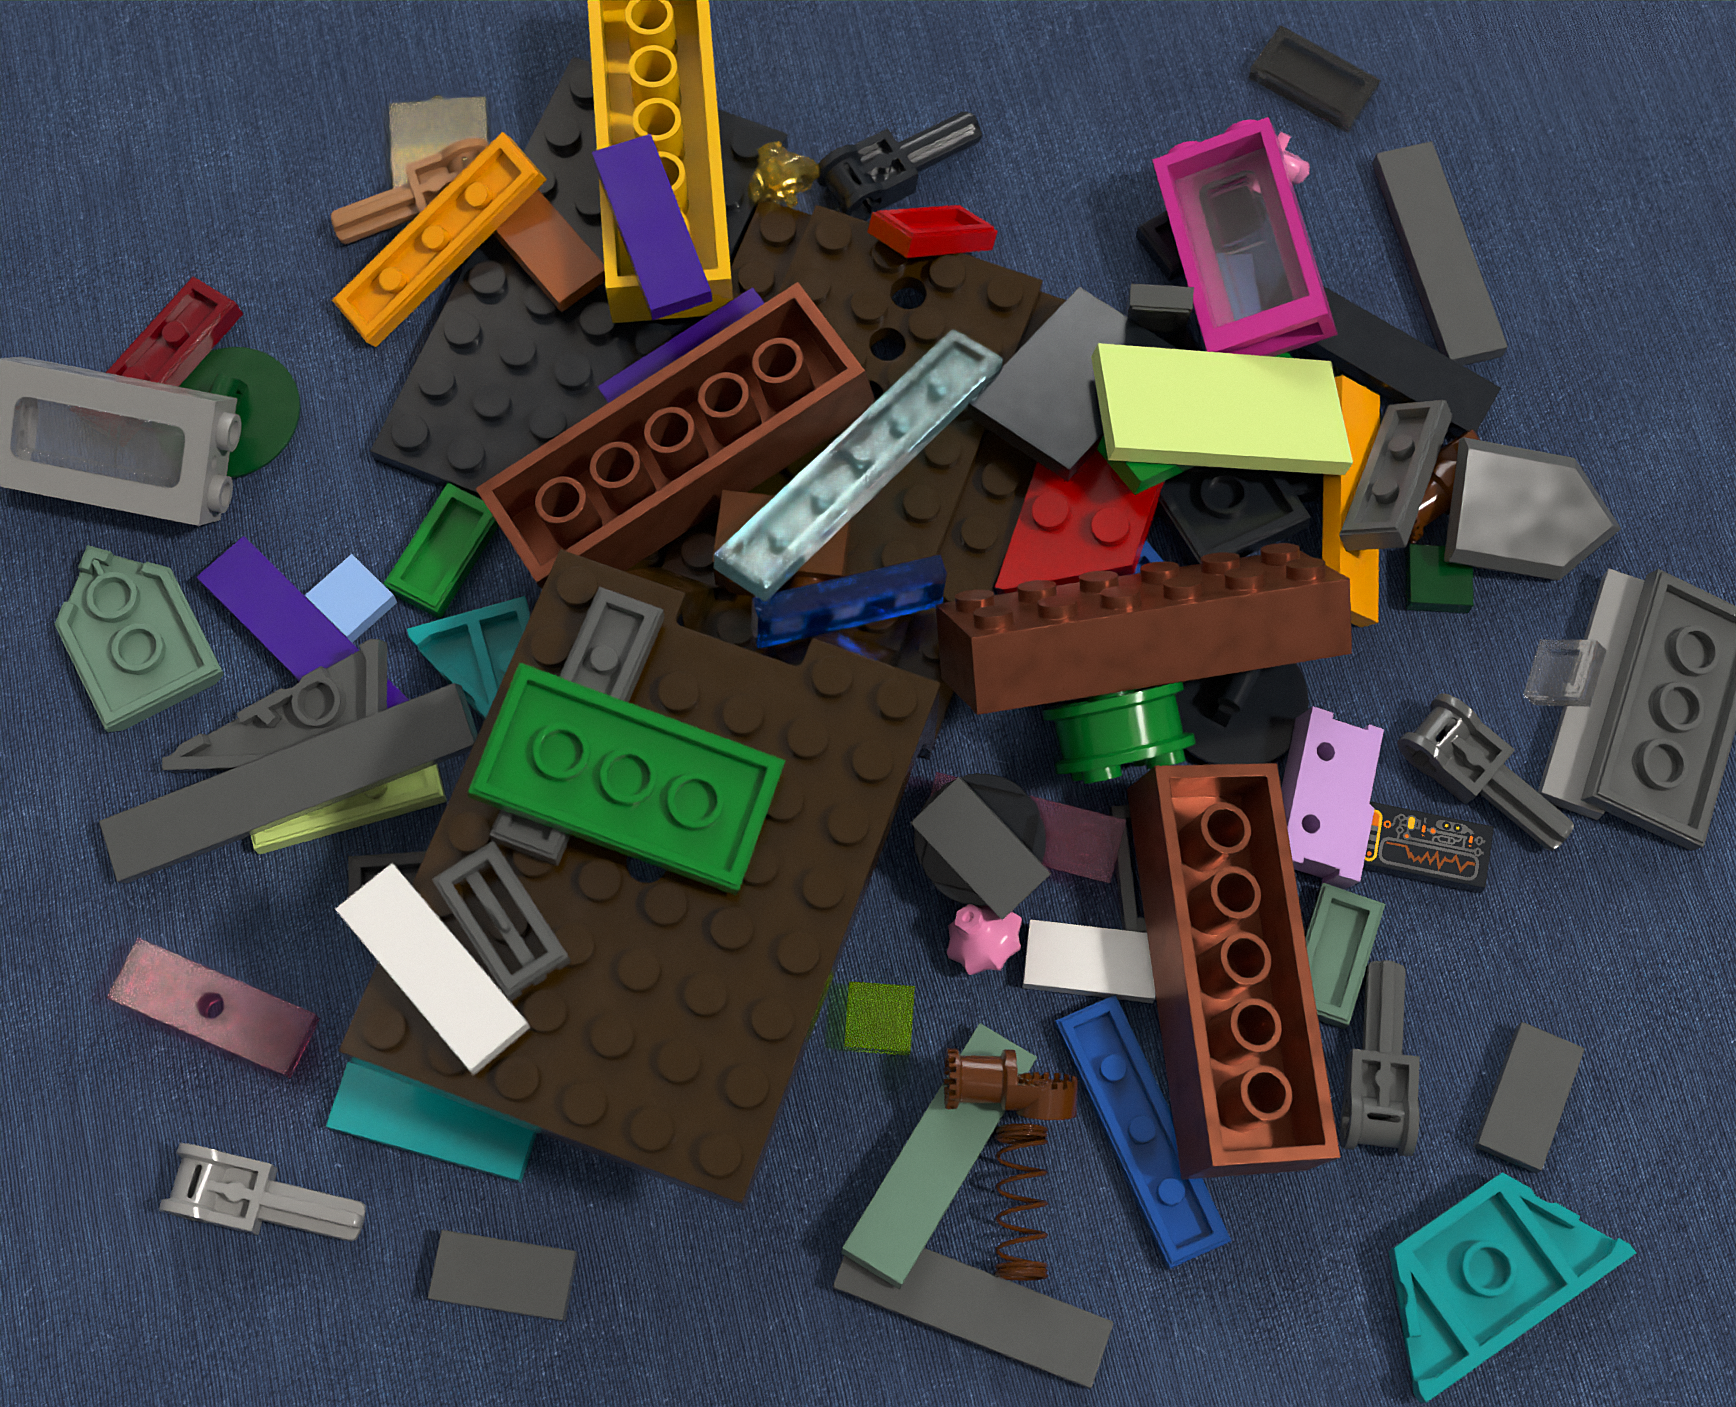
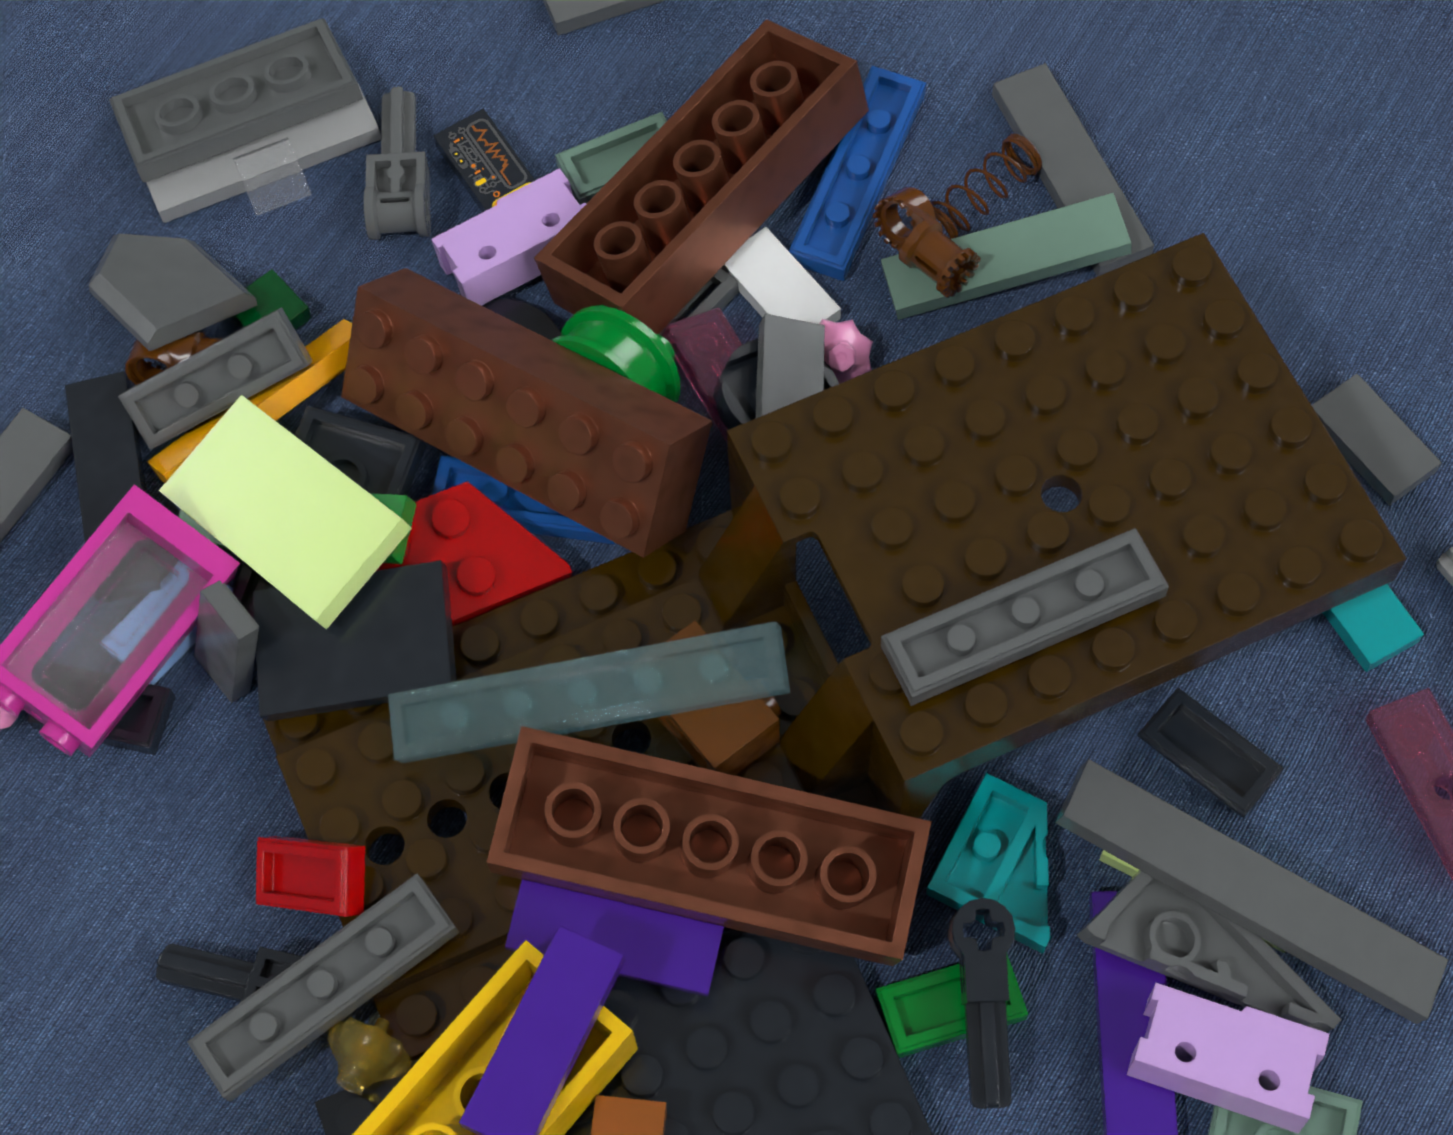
camera: 130 degrees left, 5 degrees down
(213, 658) = (1229, 1057): none -> lavender piece
(351, 598) = (1064, 1031): light blue tile -> none
(433, 968) = (1293, 538): white tile -> none
(436, 565) = (984, 1000): none -> black connector
(533, 970) = (1204, 579): dark grey tile -> none
(626, 778) = (1033, 534): green tile -> none
(842, 176) = (322, 988): none -> dark grey tile
(848, 601) = (685, 601): clear blue tile -> none
(1379, 1080) = (676, 65): dark grey connector -> none

